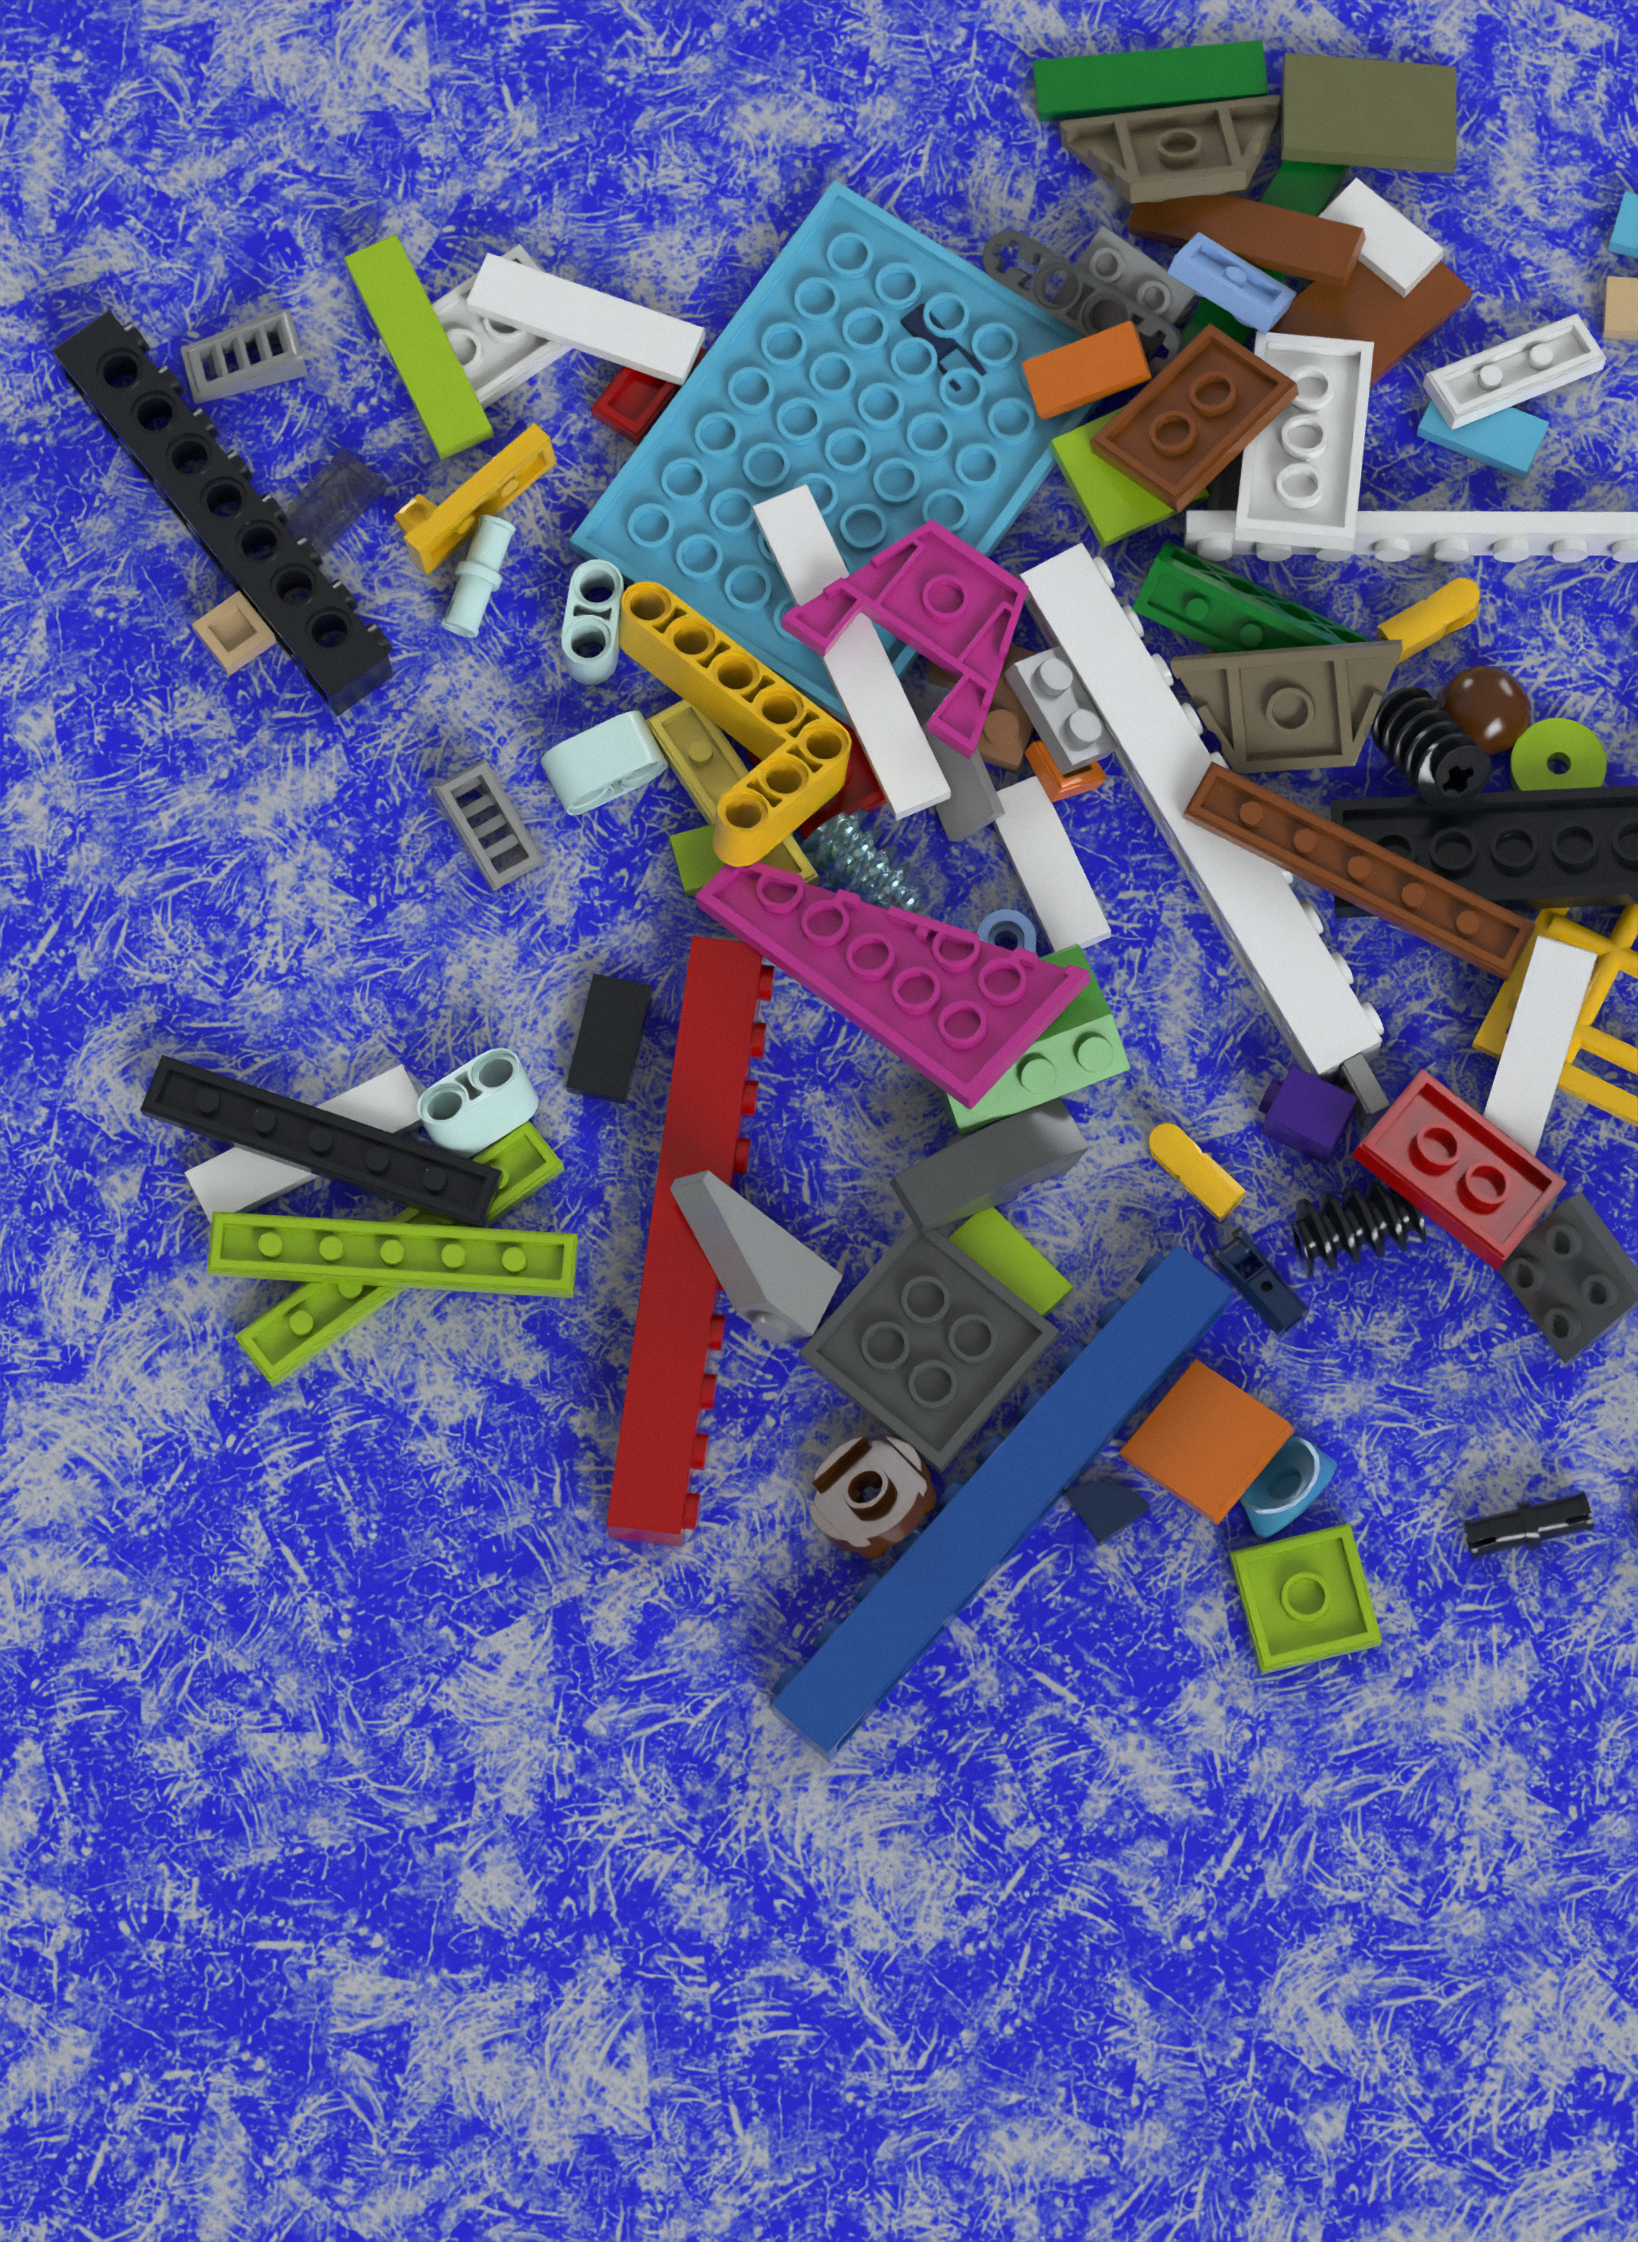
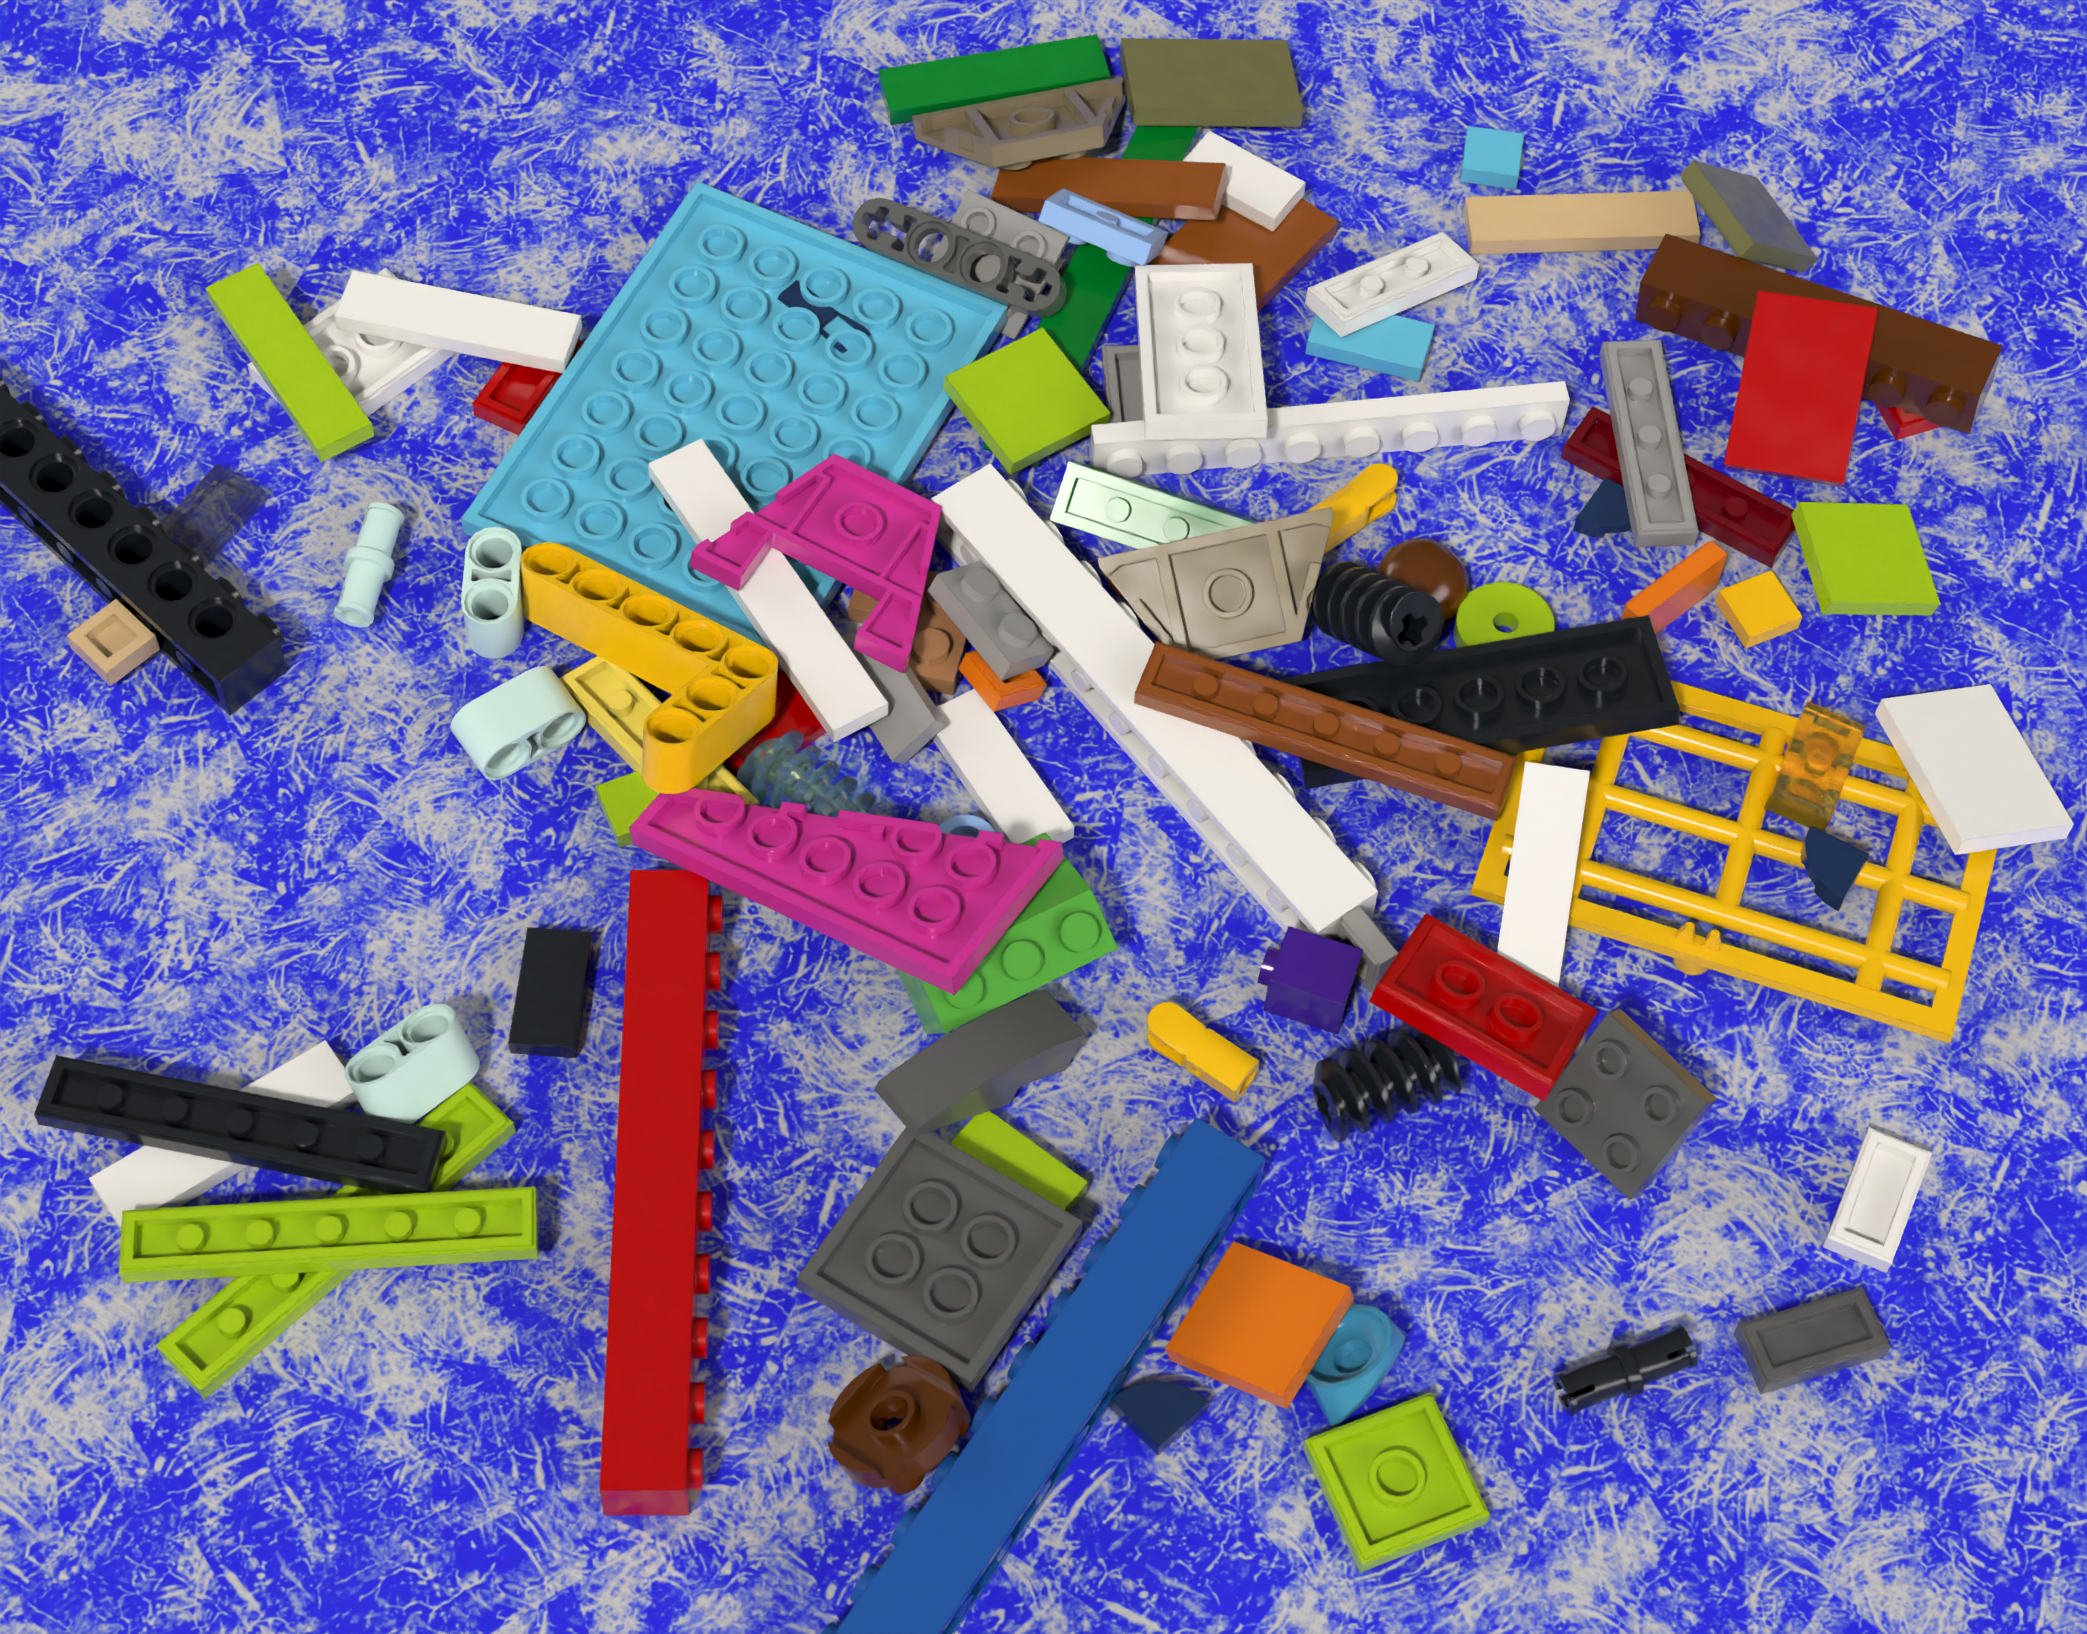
camera: 15 degrees left, 15 degrees down
(258, 333) = (121, 369): light grey slope -> none
(439, 531) = (388, 471): yellow hinge -> none
(465, 781) = (390, 750): light grey slope -> none
(758, 1262) = (739, 1186): light grey slope -> none
(1086, 370) = (972, 311): orange tile -> none
(1194, 418) = (1086, 338): dark orange tile -> none
(1264, 1289) = (1294, 1161): dark blue bar -> none

